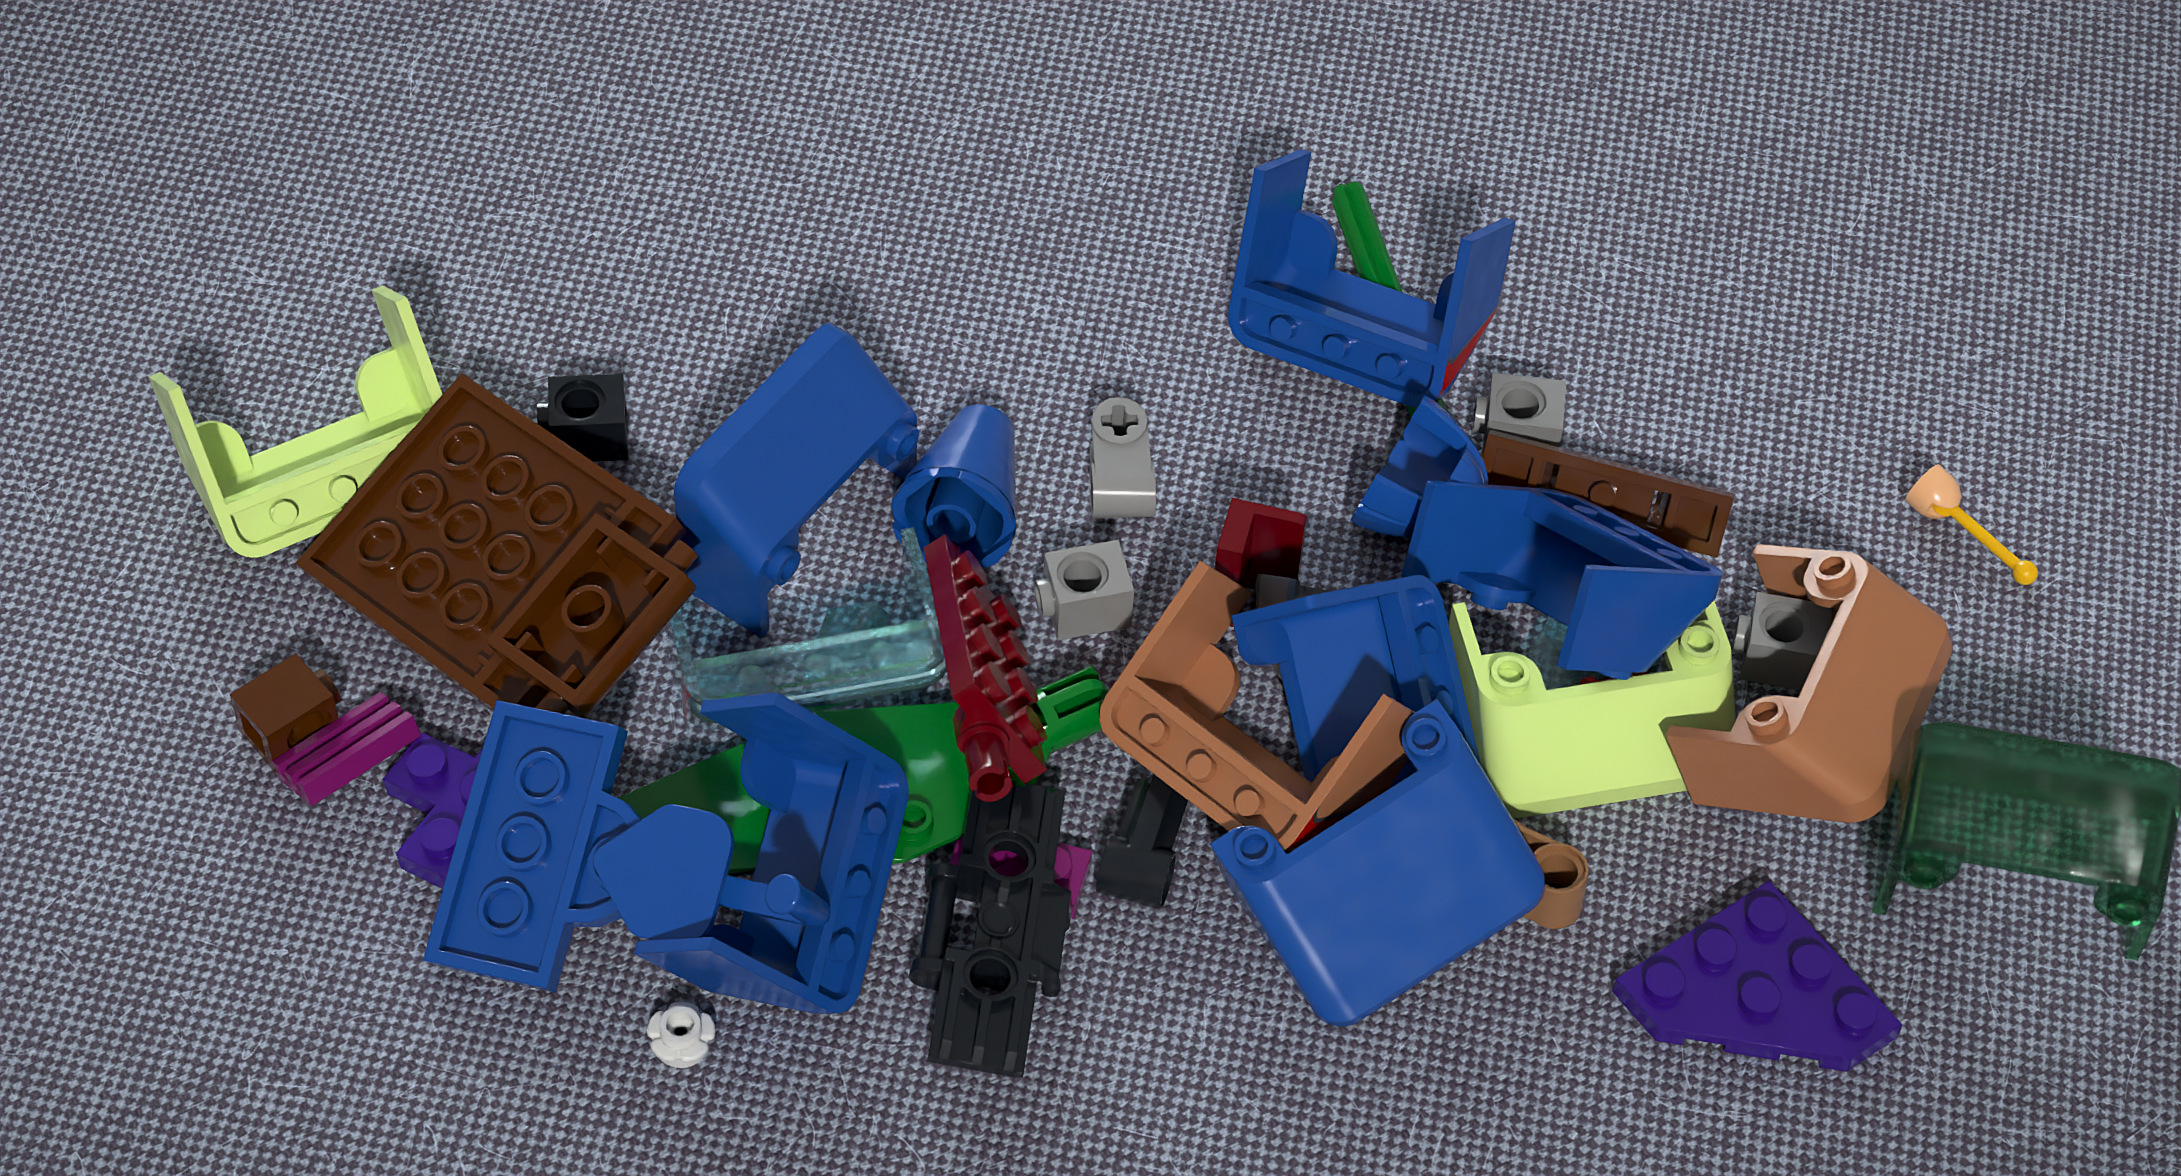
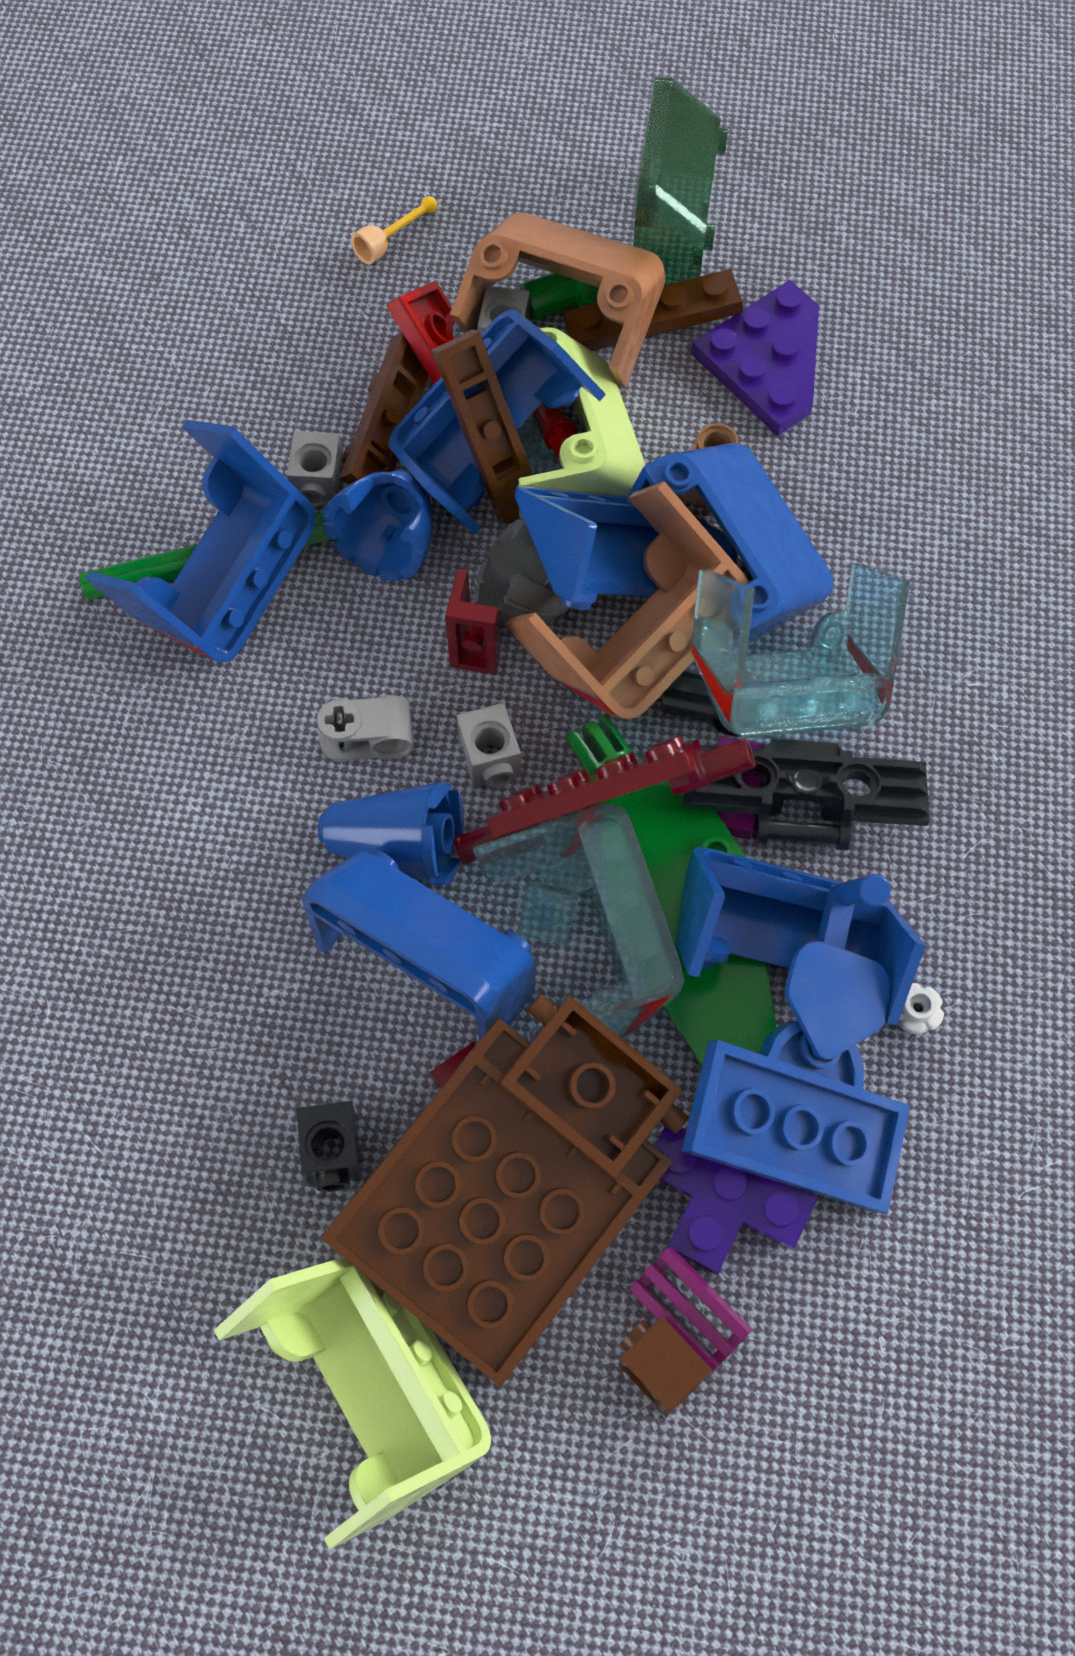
camera: 90 degrees left, 10 degrees up
(1145, 913) = (833, 685): none -> clear light blue windscreen
(1552, 555) = (484, 420): none -> reddish brown hinge
(1753, 515) = (425, 322): none -> red tile
(1840, 881) = (678, 307): none -> reddish brown plate

